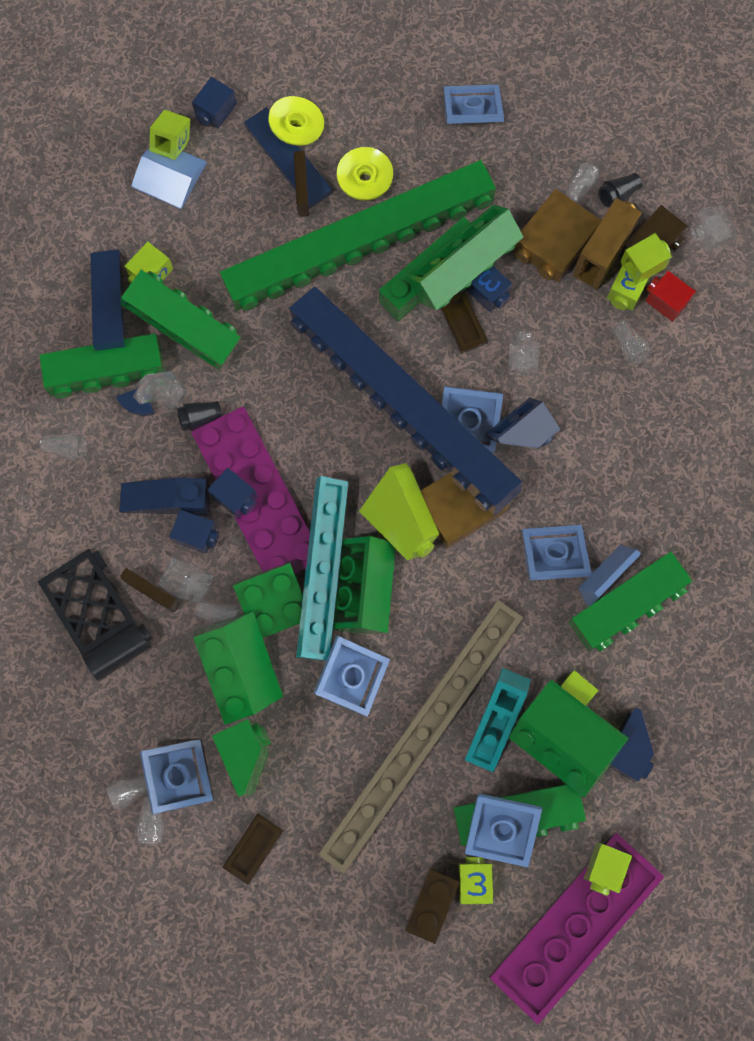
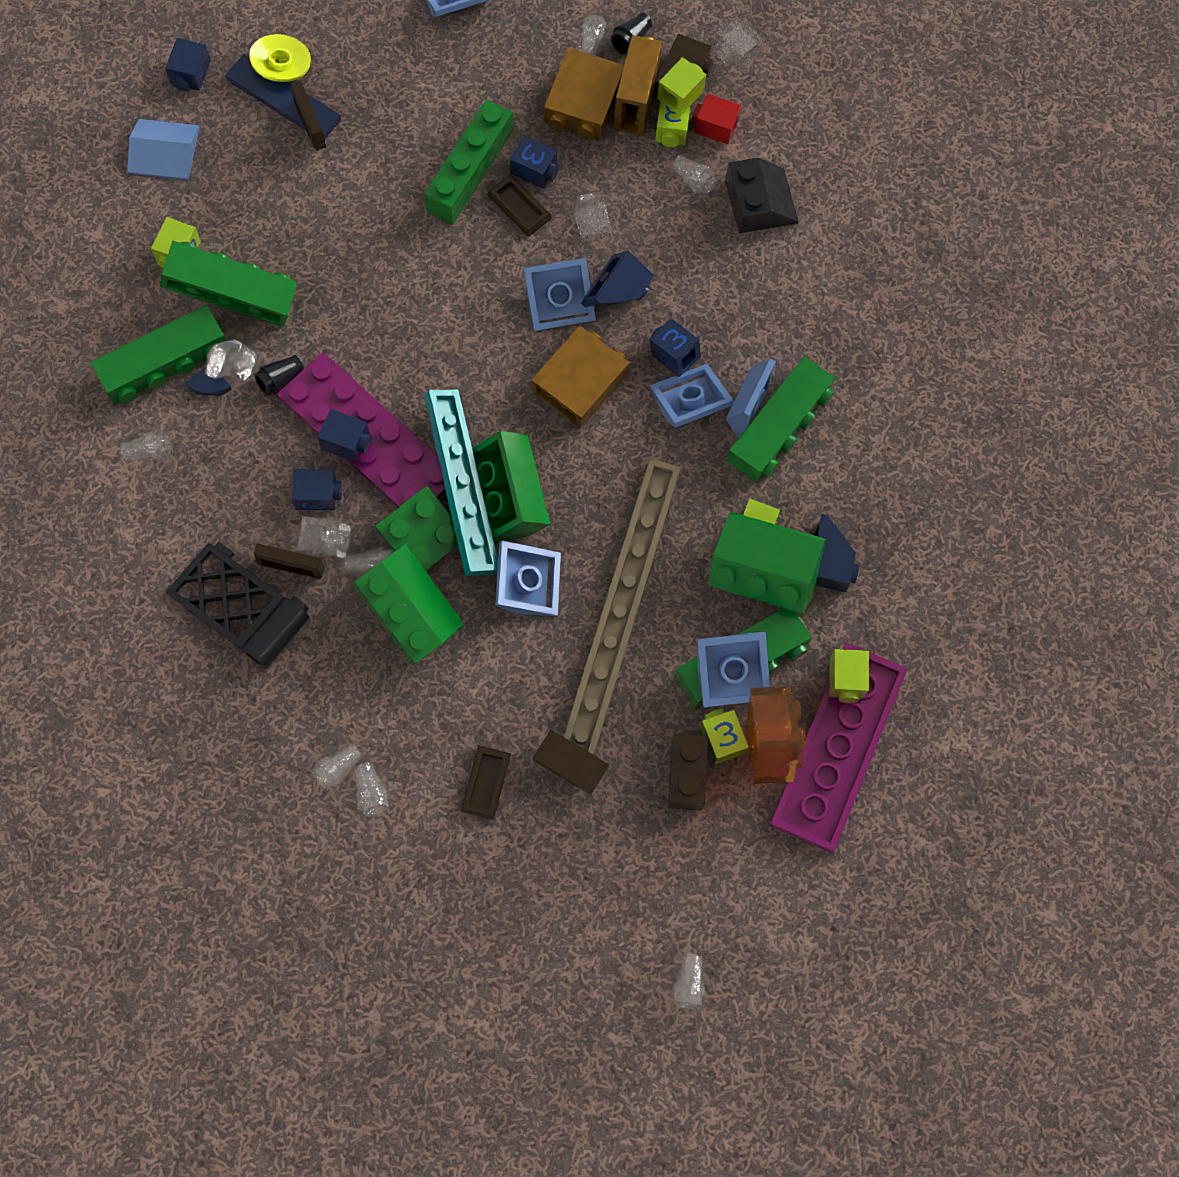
camera: 25 degrees left, 5 degrees down
(106, 298) = (143, 288): dark blue tile -> none
(165, 496) = (271, 464): dark blue slope -> none
(169, 134) = (152, 107): lime brick -> none
(173, 778) = (378, 738): medium blue slope -> none
(243, 754) = (444, 680): green slope -> none
(330, 861) = (570, 762): none -> dark brown tile
(358, 235) = (382, 152): green brick -> none
(361, 162) = (369, 78): neon yellow dish -> none
(401, 513) = (523, 402): lime slope -> none
(405, 402) = (488, 292): dark blue brick -> none
(465, 257) = (501, 135): brick -> none
(498, 719) = (690, 574): teal slope -> none
(519, 901) = (774, 734): none -> clear orange brick
(556, 502) = (675, 347): none -> dark blue brick
(684, 381) = (759, 195): none -> black slope

